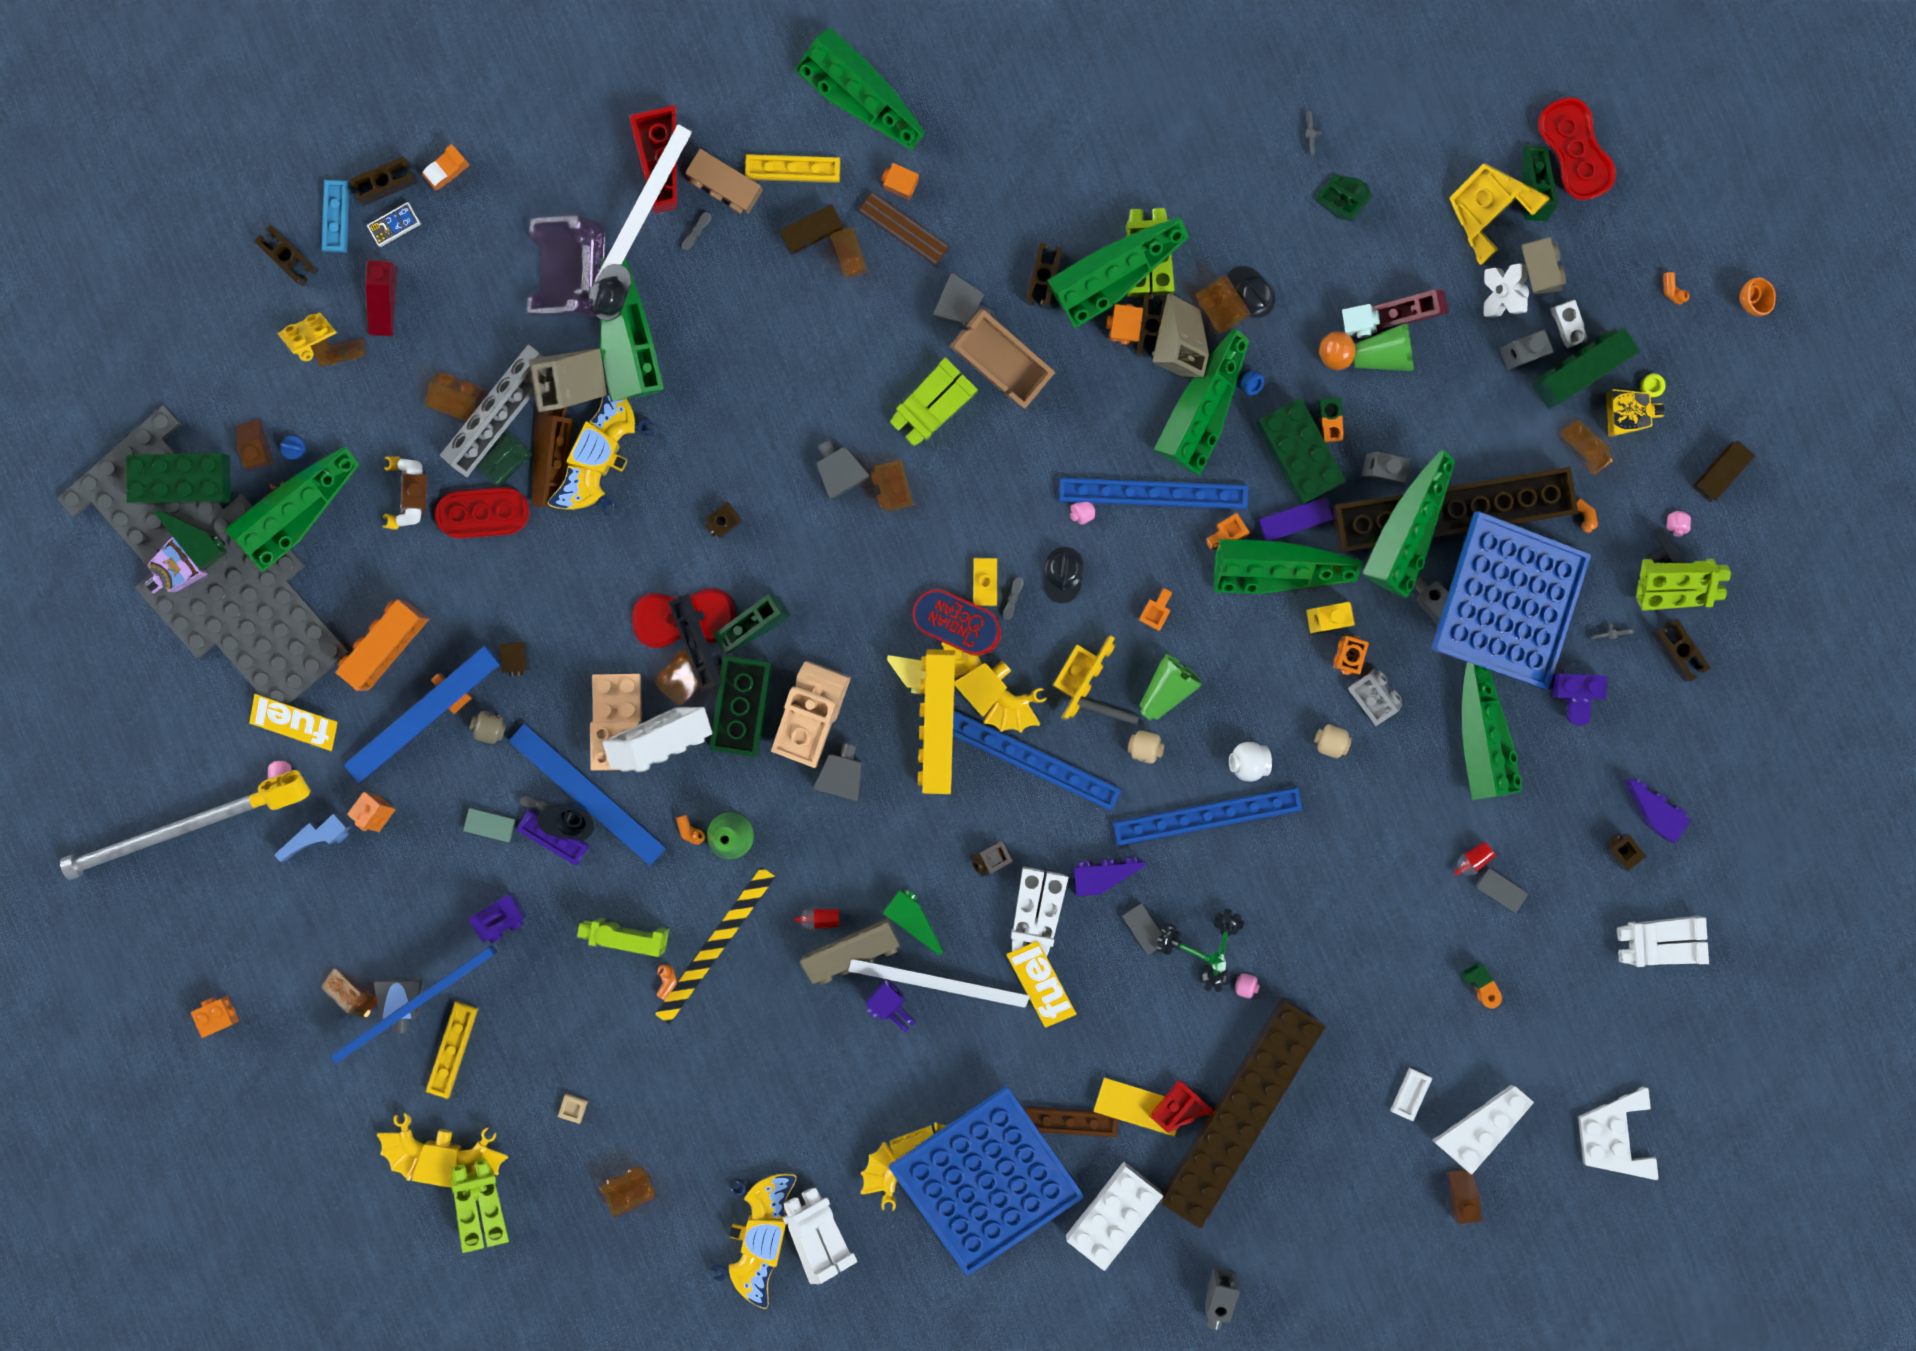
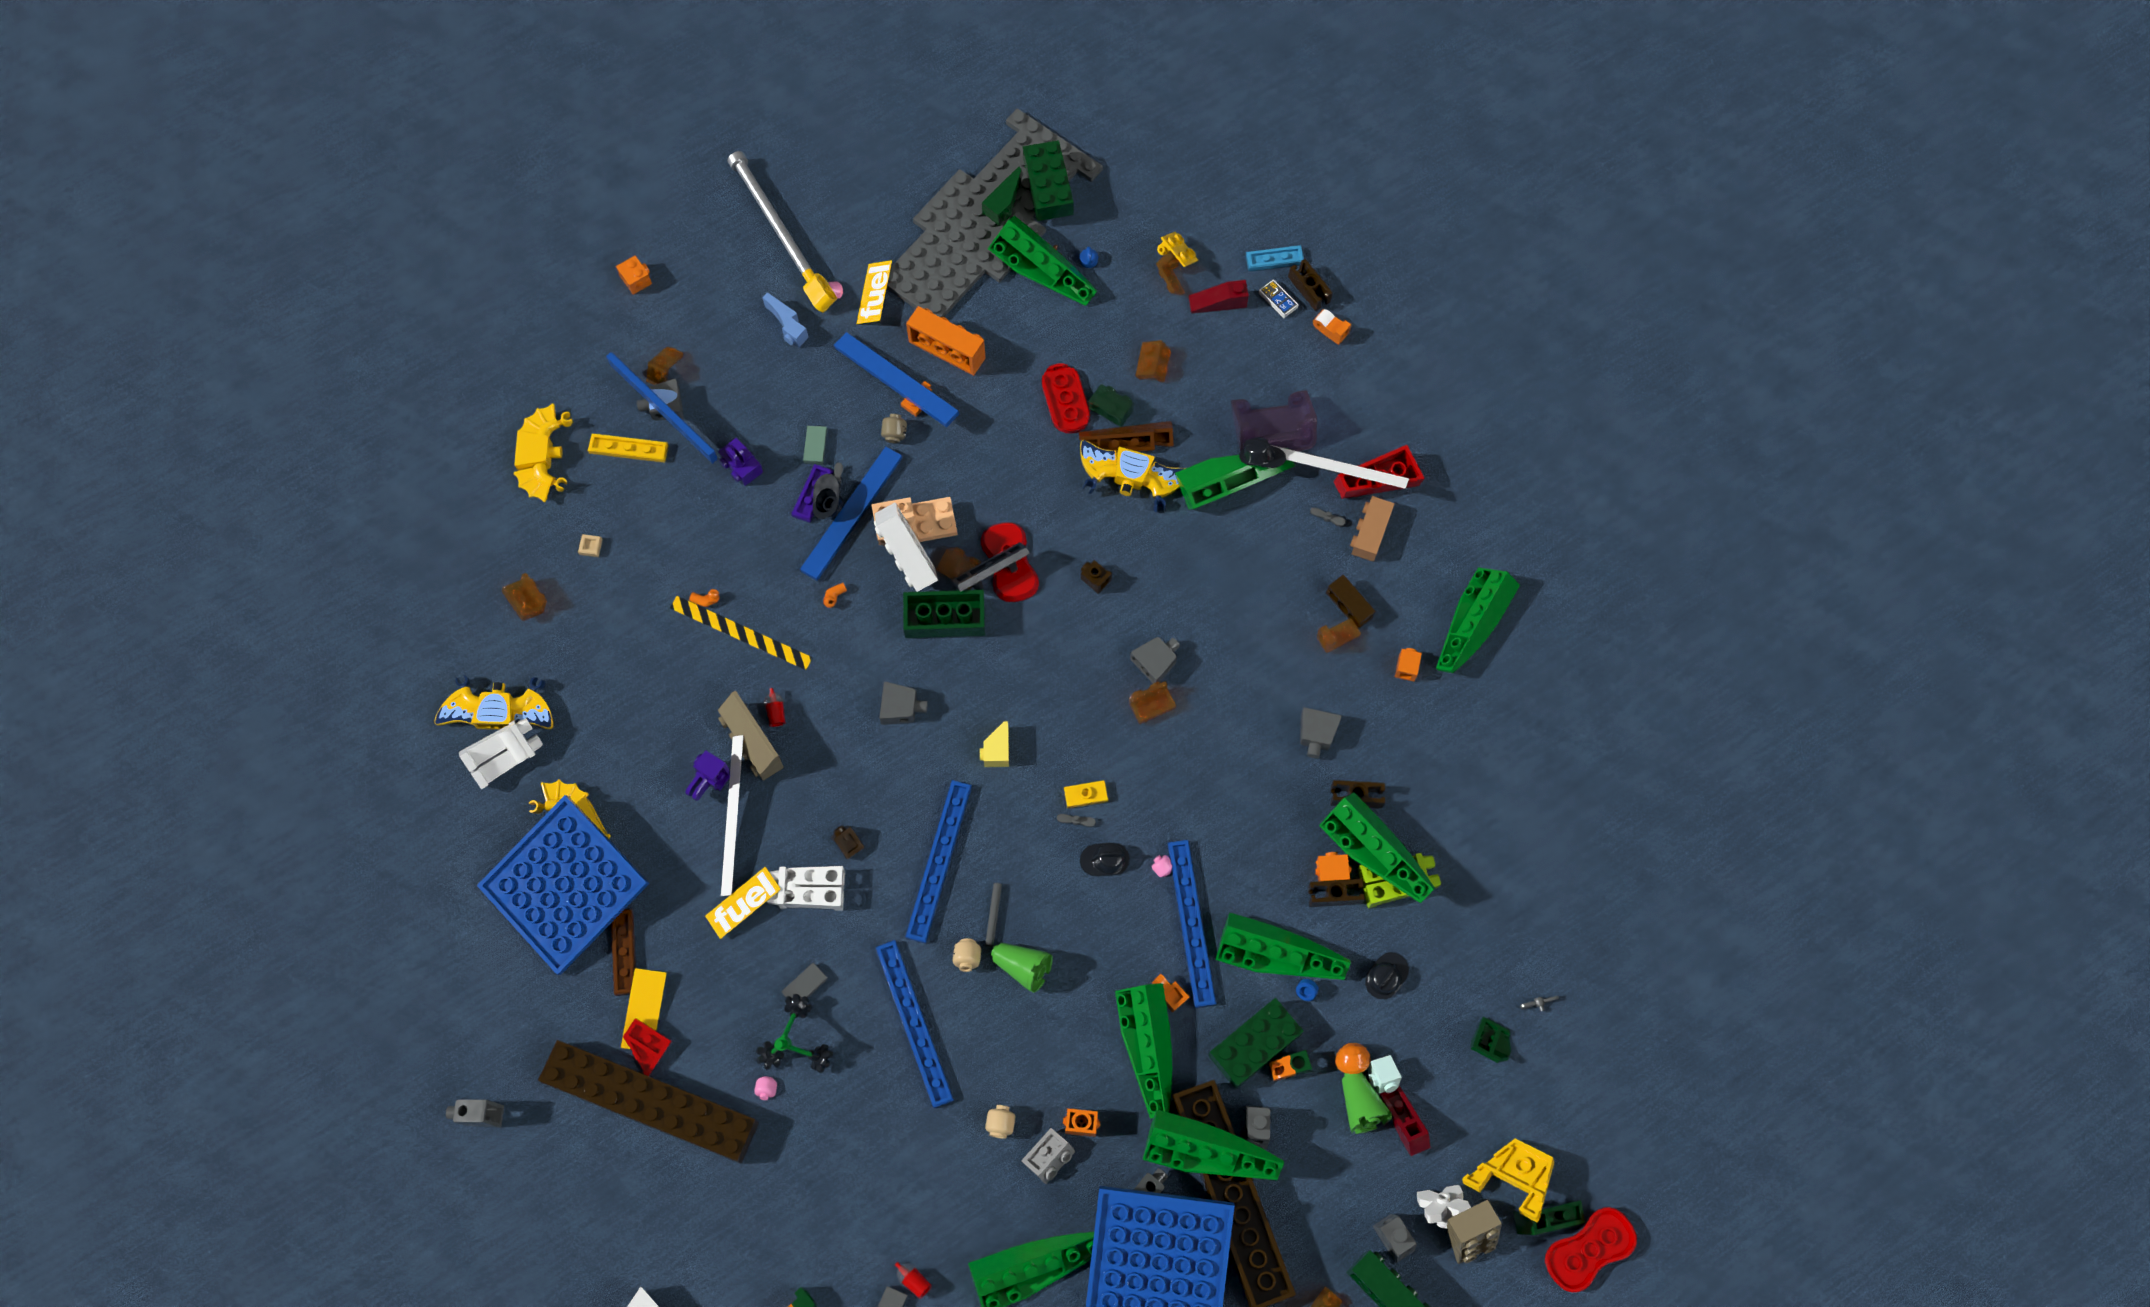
camera: 85 degrees right, 20 degrees down
(172, 569) = (977, 187): torso -> none
(253, 445) = (1083, 230): reddish brown slope -> none
(293, 261) = (1236, 235): dark brown piece -> none
(371, 812) = (812, 355): orange head -> none
(412, 492) = (1070, 342): torso -> none
(481, 1188) = (500, 483): lime hips -> none
(492, 415) = (1149, 392): light grey brick -> none
(514, 658) = (953, 439): dark brown brick -> none
(567, 379) = (1185, 434): dark tan slope -> none
(617, 937) = (736, 553): lime hips -> none
(737, 829) = (834, 625): bright green cone -> none
(752, 623) = (1016, 612): dark green slope -> none
(792, 168) = (1397, 581): yellow tile -> none
(809, 713) = (948, 668): light nougat piece -> none
(903, 228) = (1369, 675): reddish brown tile -> none
(910, 916) = (786, 783): green slope -> none
(928, 420) = (1229, 723): lime hips -> none
(937, 721) = (958, 771): yellow brick -> none
(956, 622) = (1046, 773): tile -> none
(984, 688) = (996, 807): yellow torso -> none
(1002, 359) = (1278, 768): medium nougat piece -> none
(1078, 672) = (1022, 884): yellow bracket -> none
(1099, 878) = (843, 934): dark purple slope -> none
(1114, 1216) = (542, 1003): white brick -> none
(1156, 612) = (1086, 943): orange plate -> none
(1181, 339) = (1331, 917): dark tan slope -> none
(1222, 304) = (1369, 950): clear orange bracket -> none
(1250, 761) = (969, 1048): white piece -> none
(1296, 519) = (1194, 1052): dark purple tile -> none
(1330, 617) = (1113, 1101): yellow torso -> none
(1411, 1094) = (684, 1261): white tile -> none
(1569, 323) = (1429, 1273): white leg -> none

